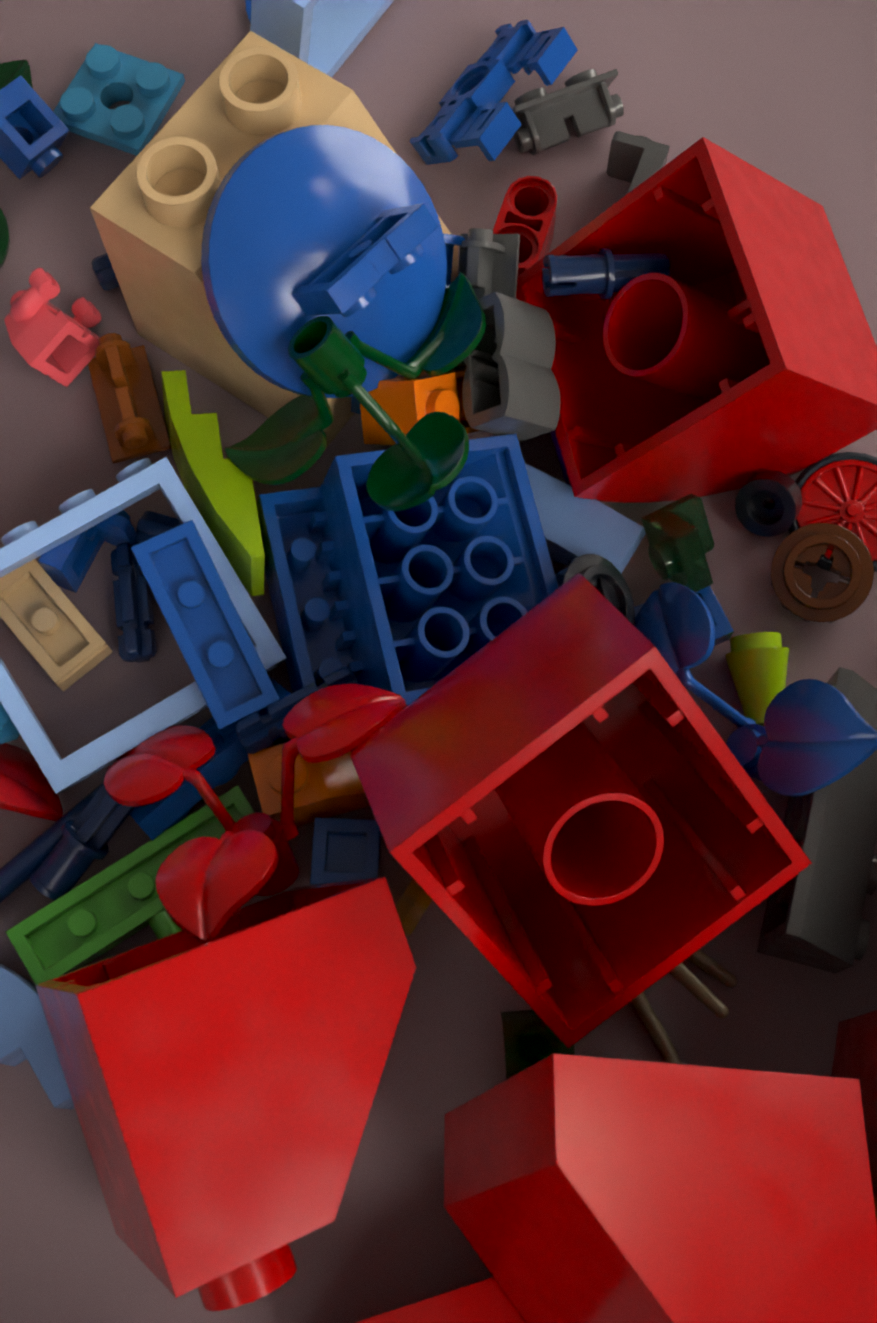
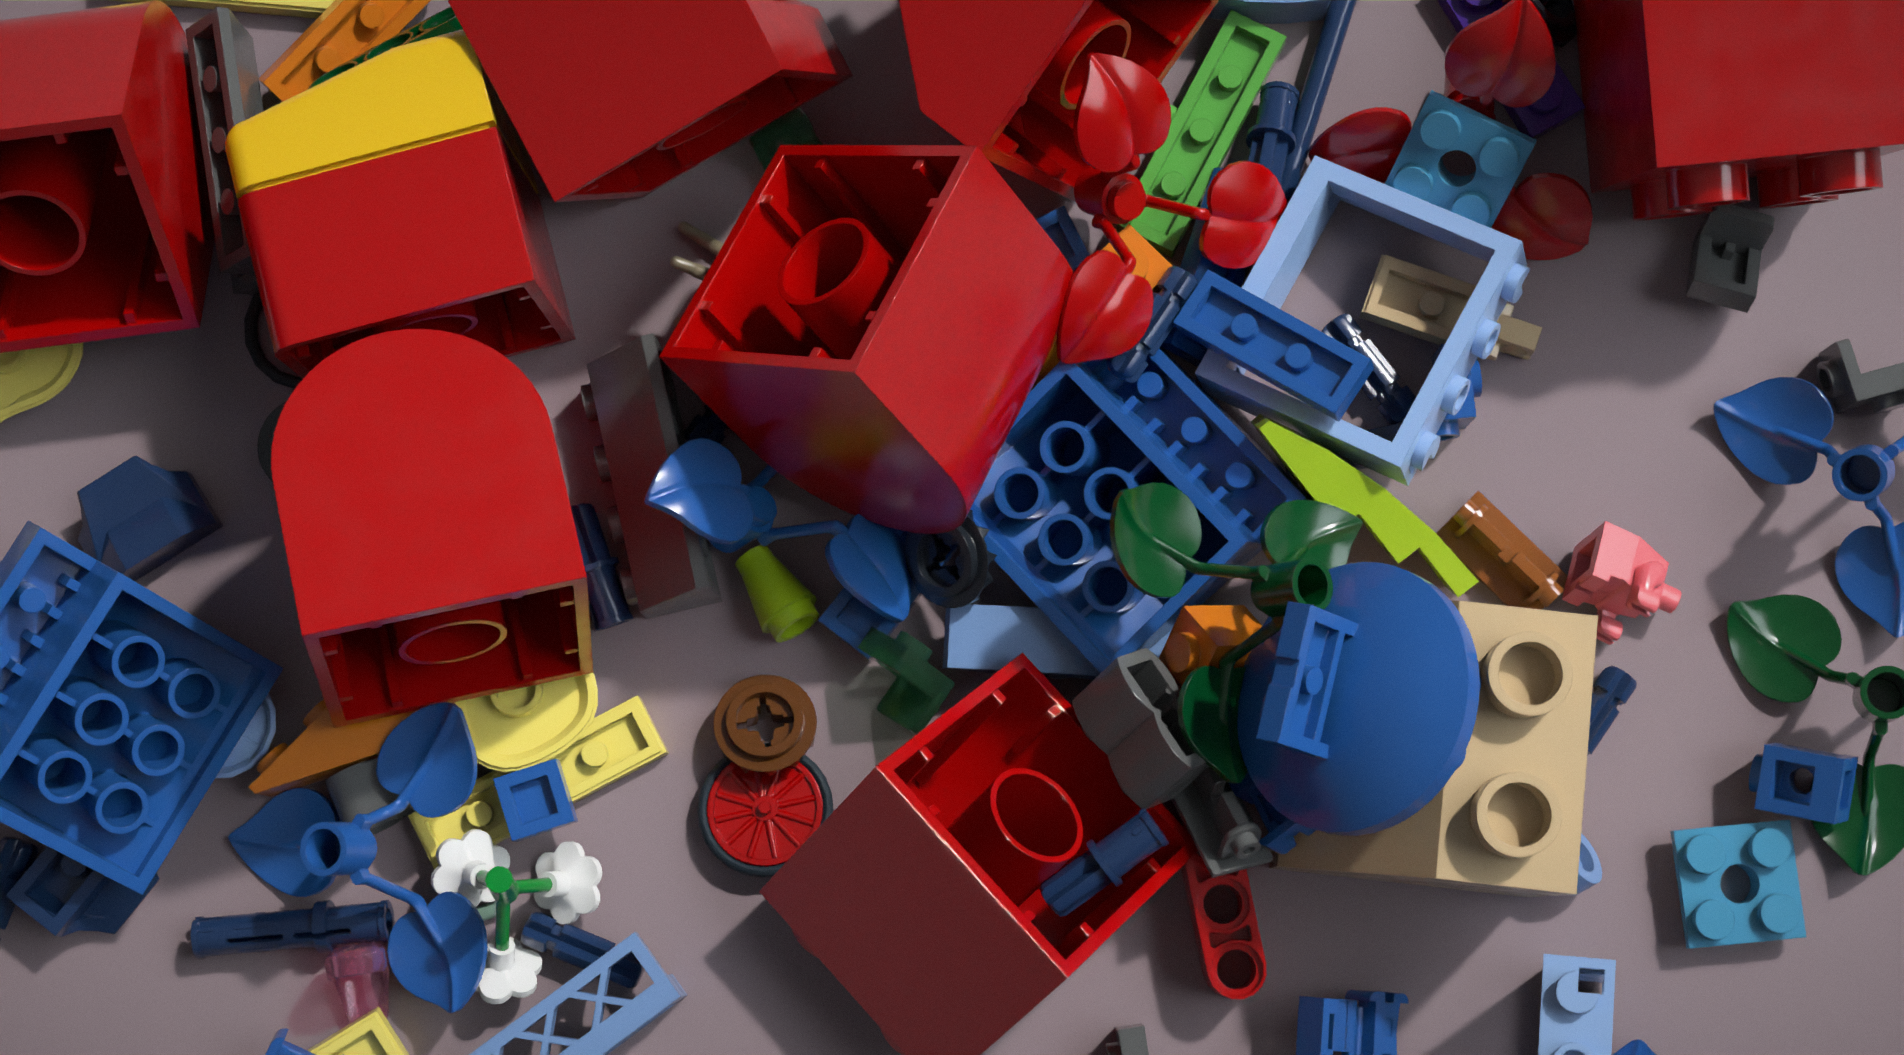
camera: 155 degrees right, 10 degrees up
(768, 503) = (842, 767): black tile -> none

